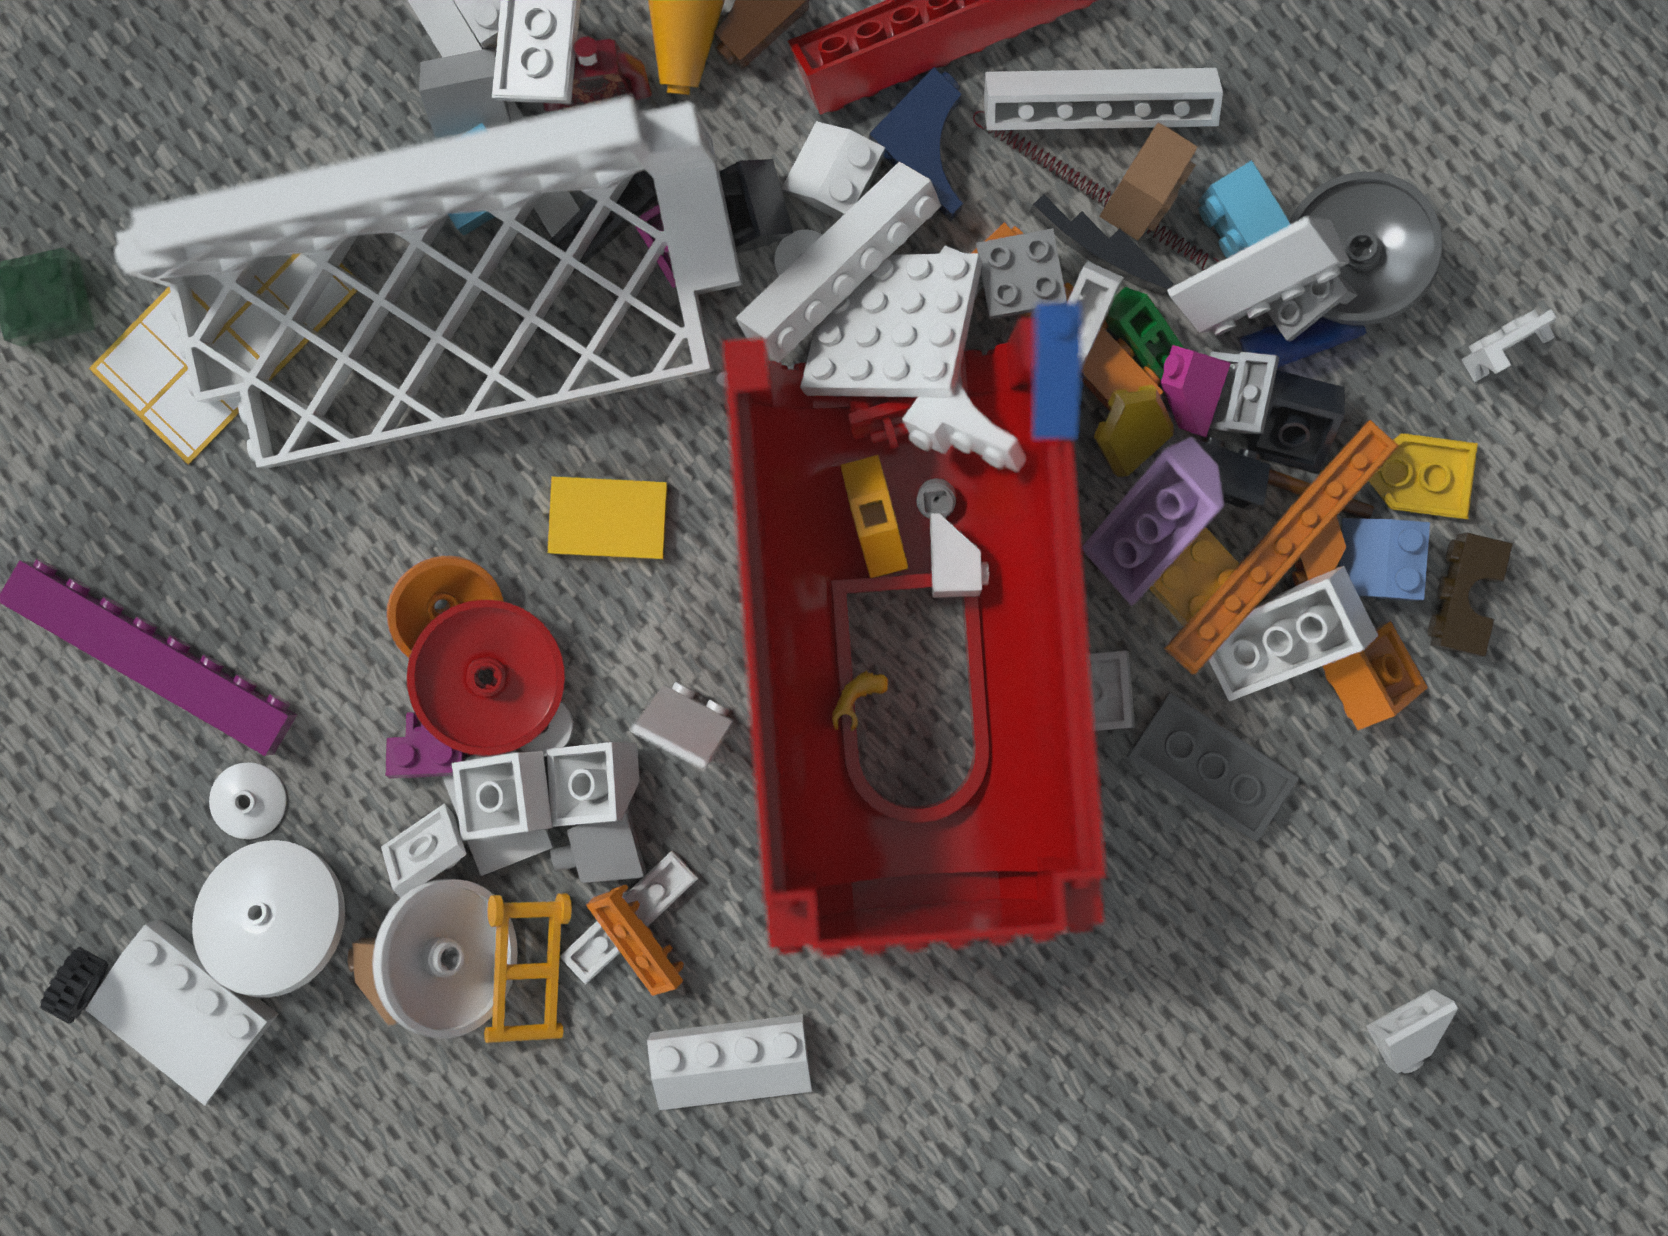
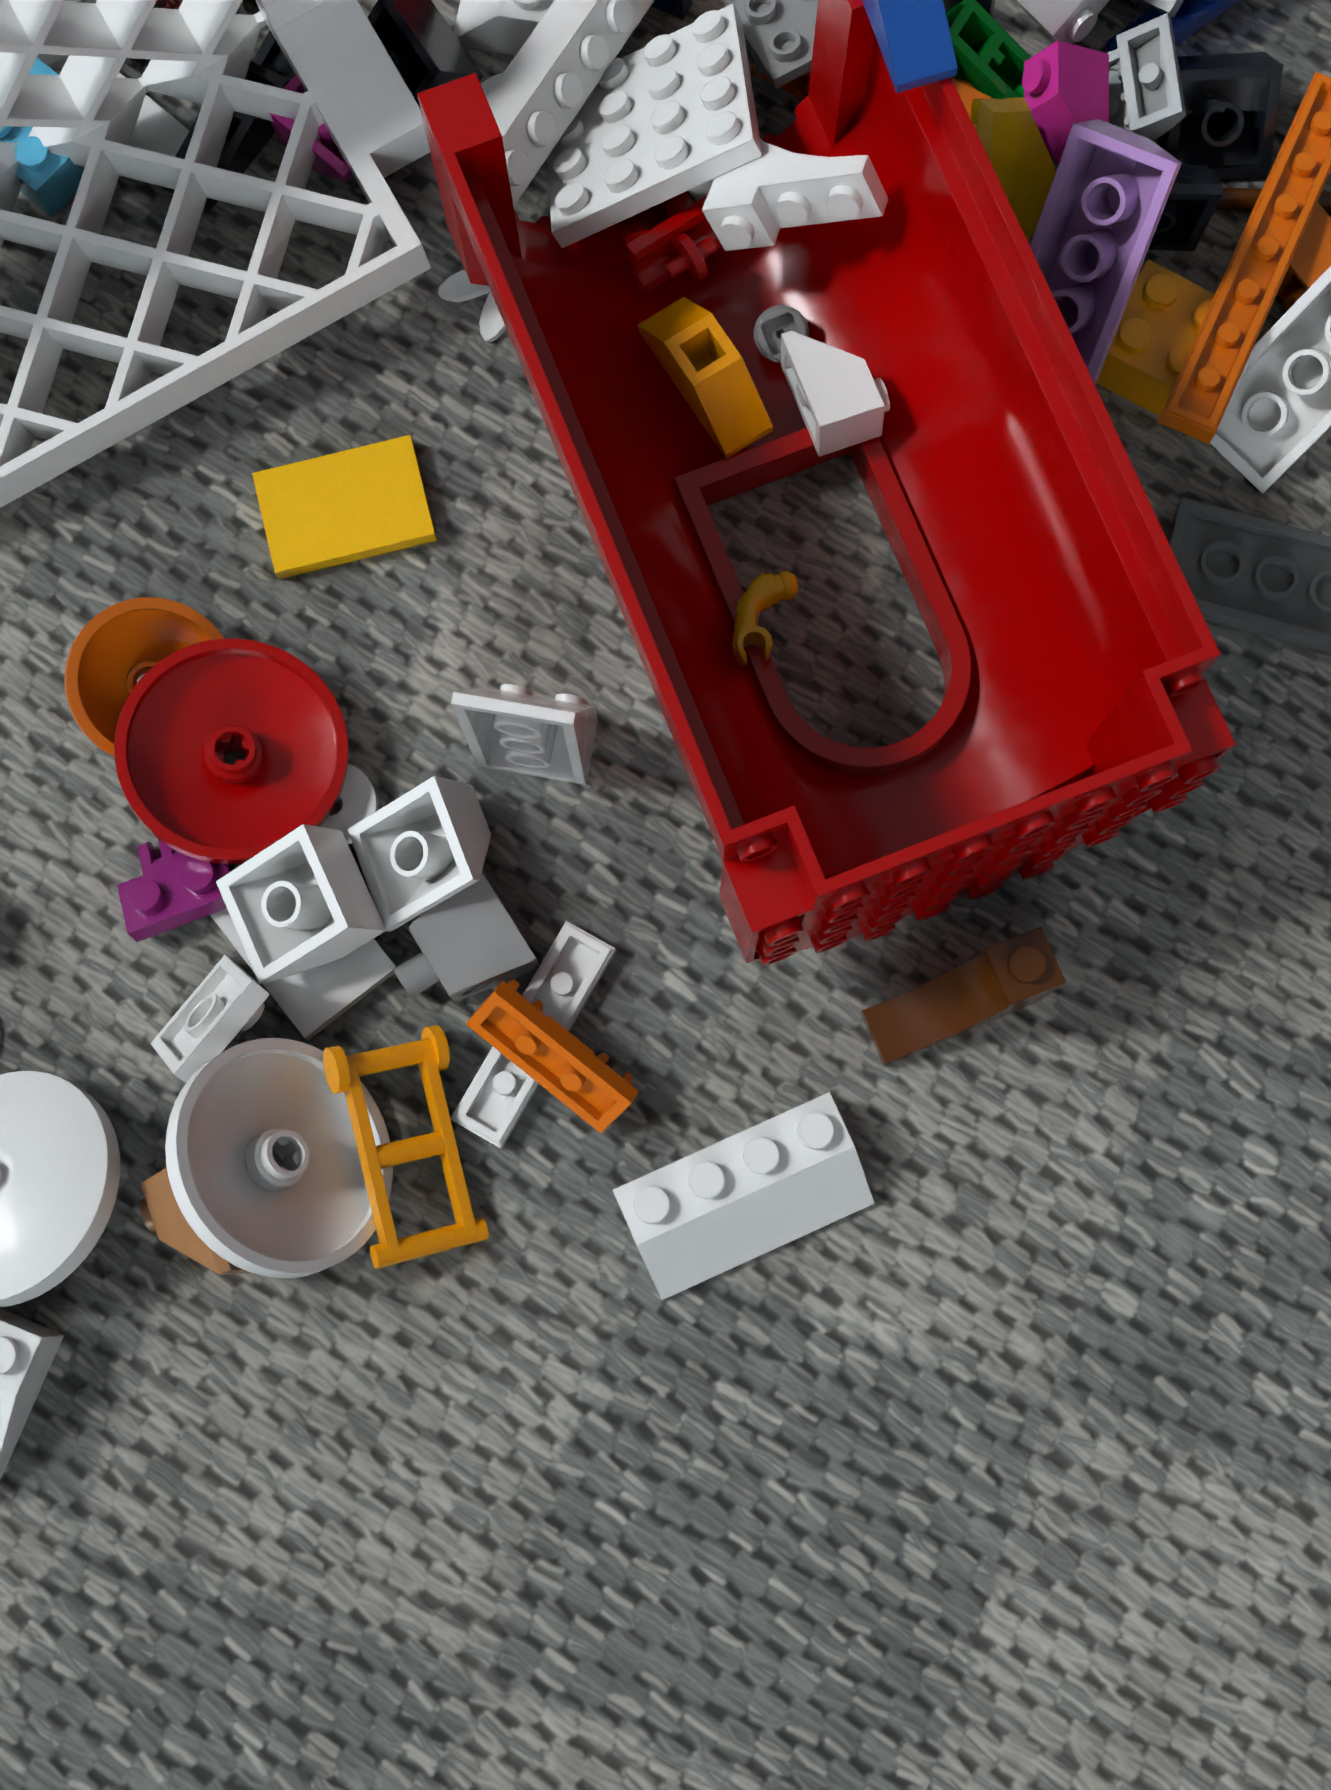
camera: 10 degrees left, 10 degrees down
(922, 985) = (966, 997): none -> reddish brown arch

